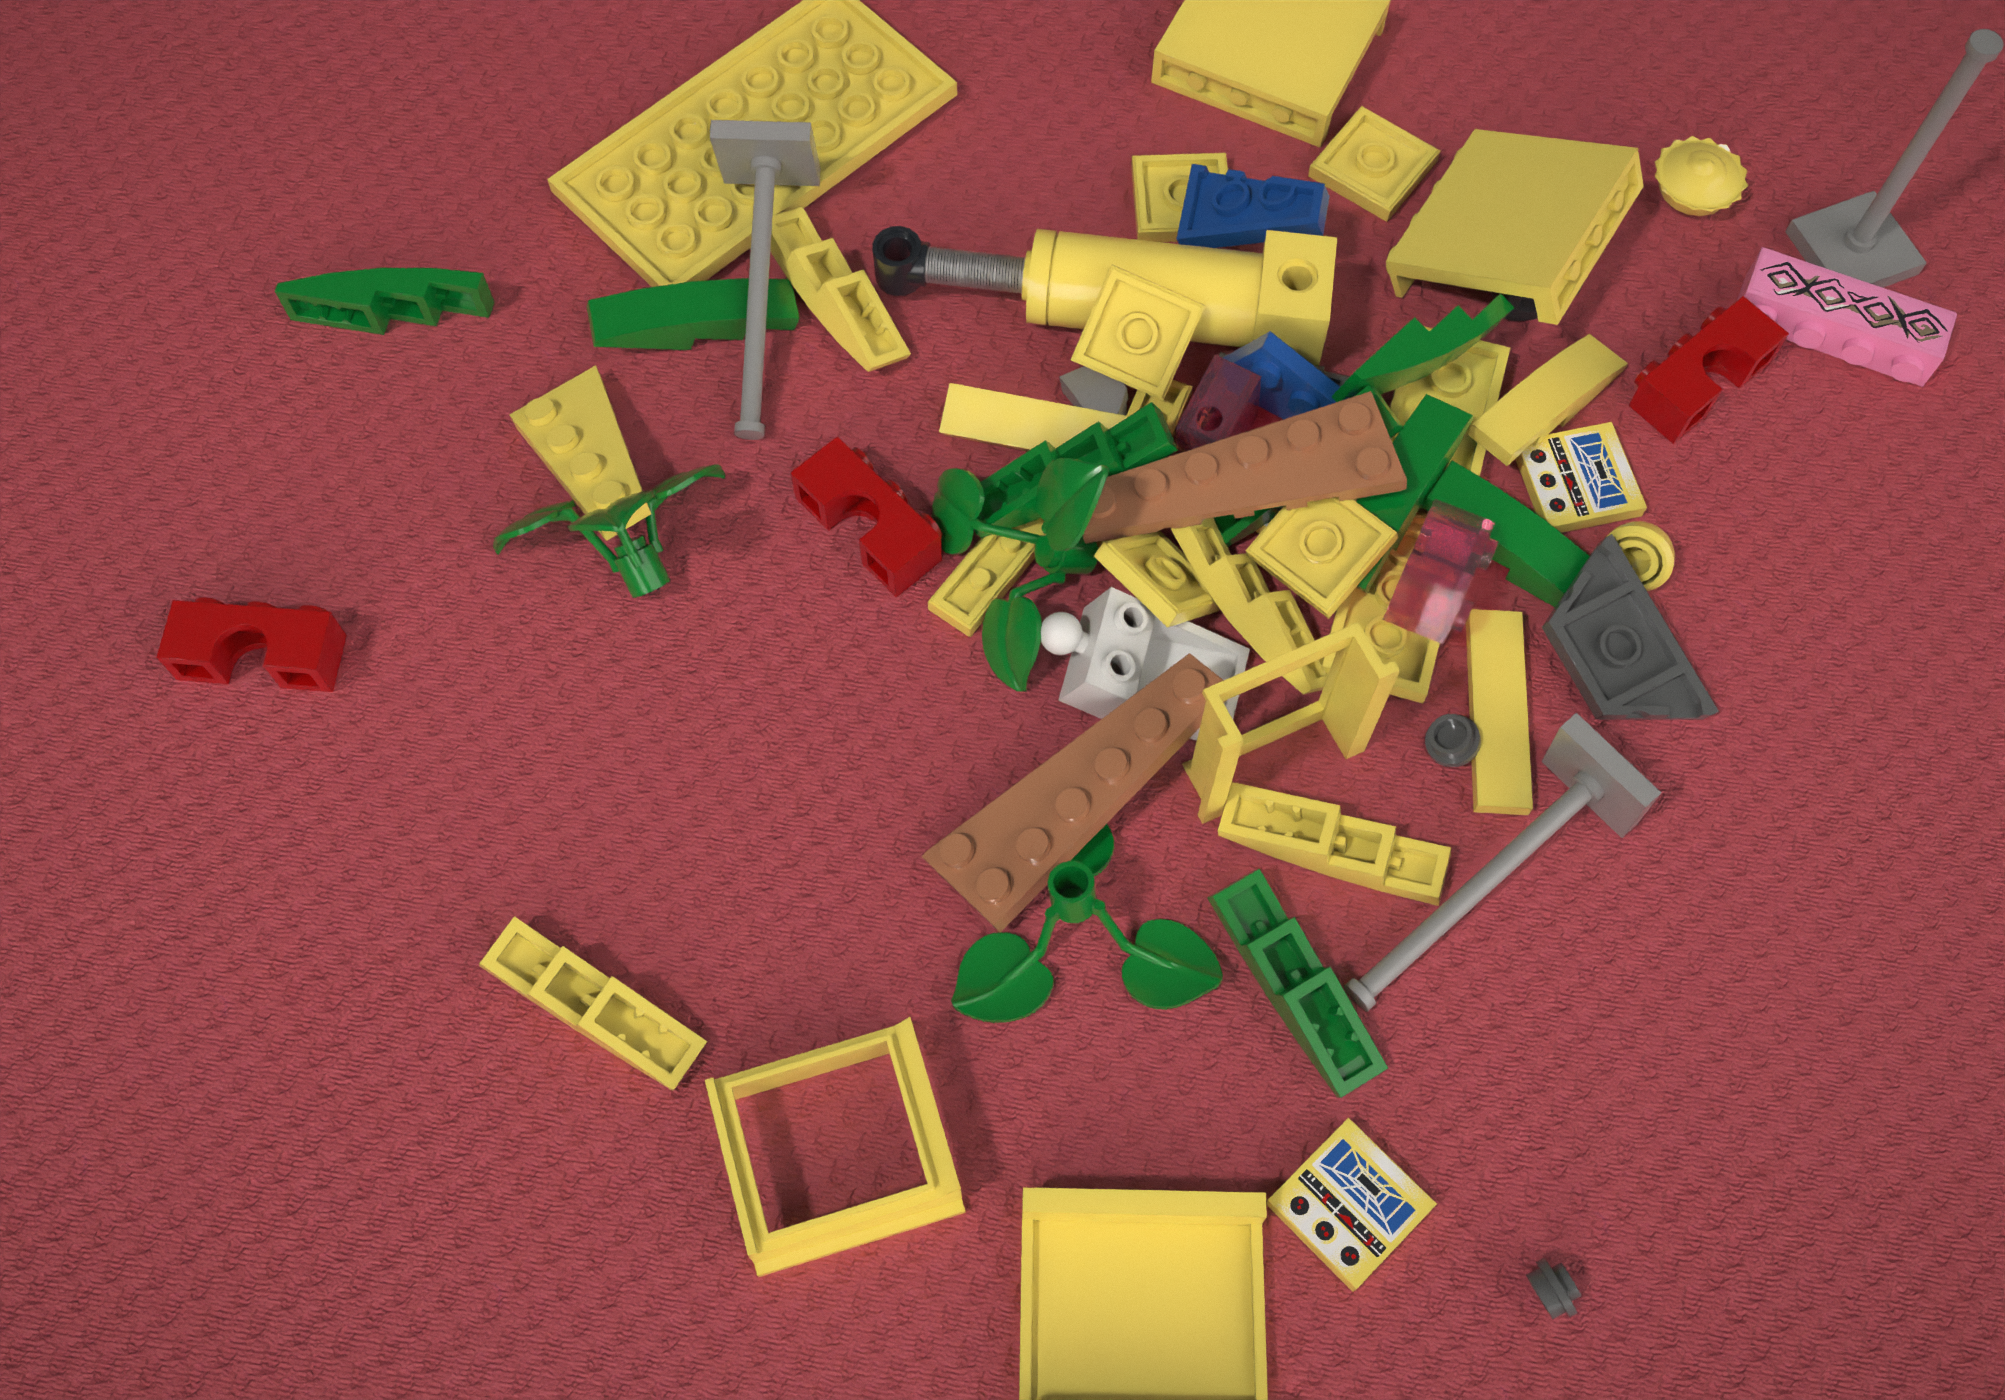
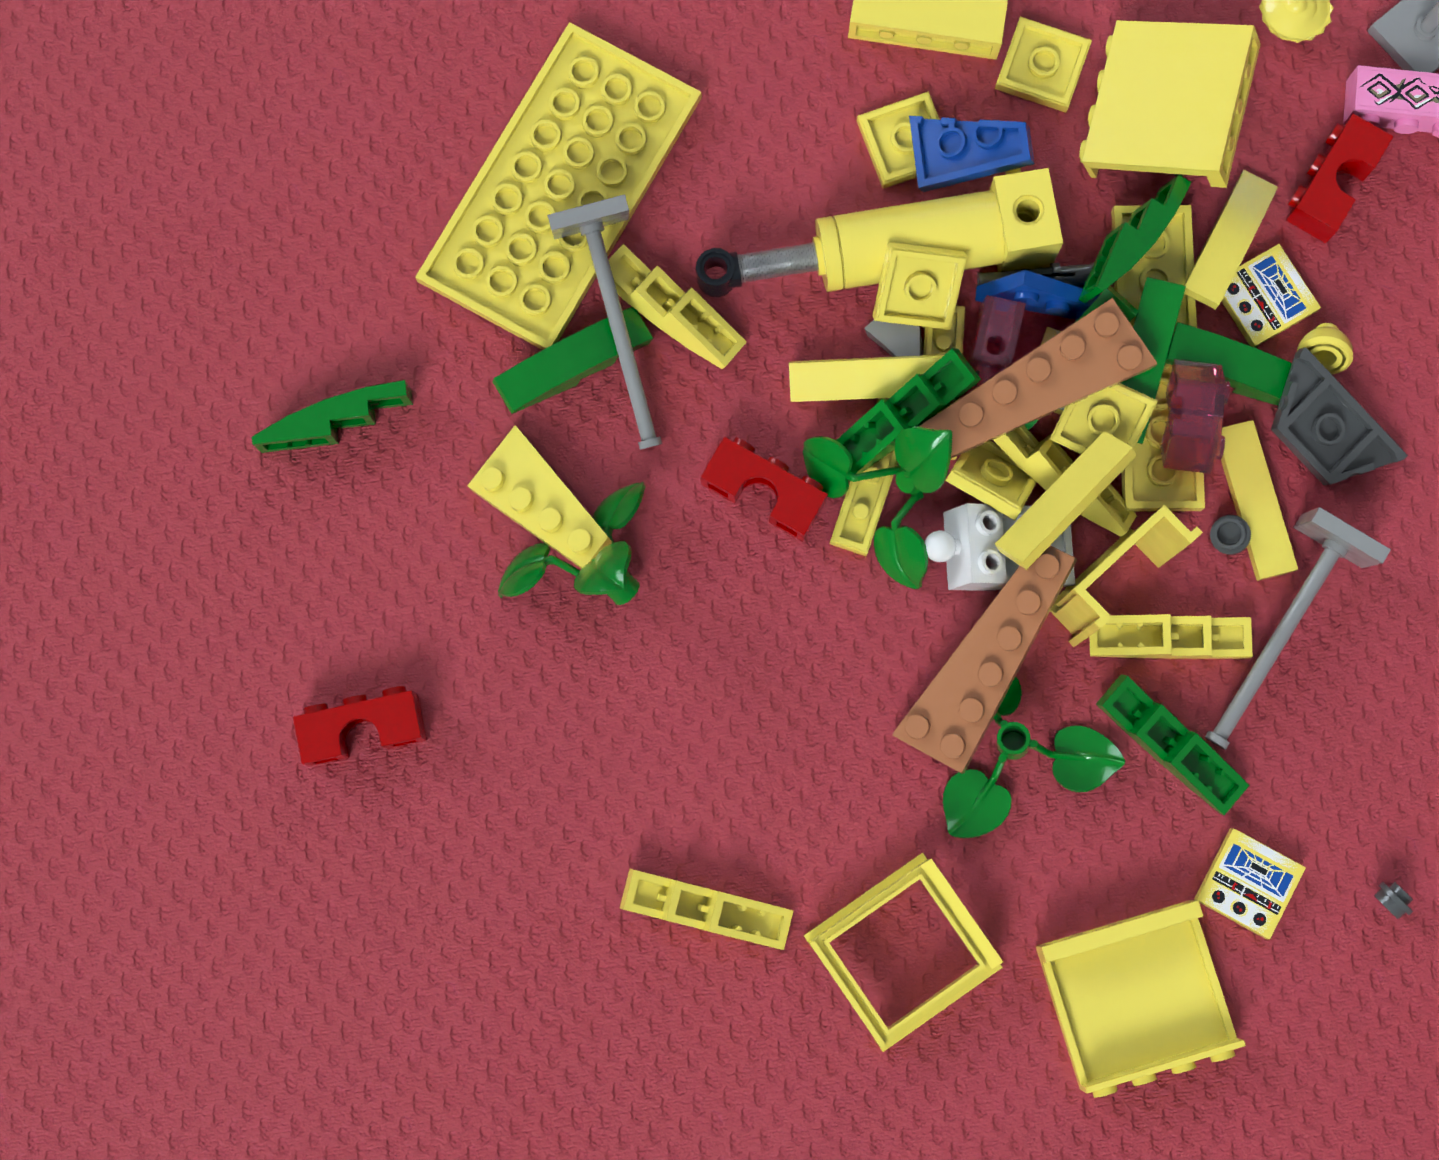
camera: 15 degrees left, 15 degrees up
(1238, 614) = (1065, 499): none -> light yellow tile

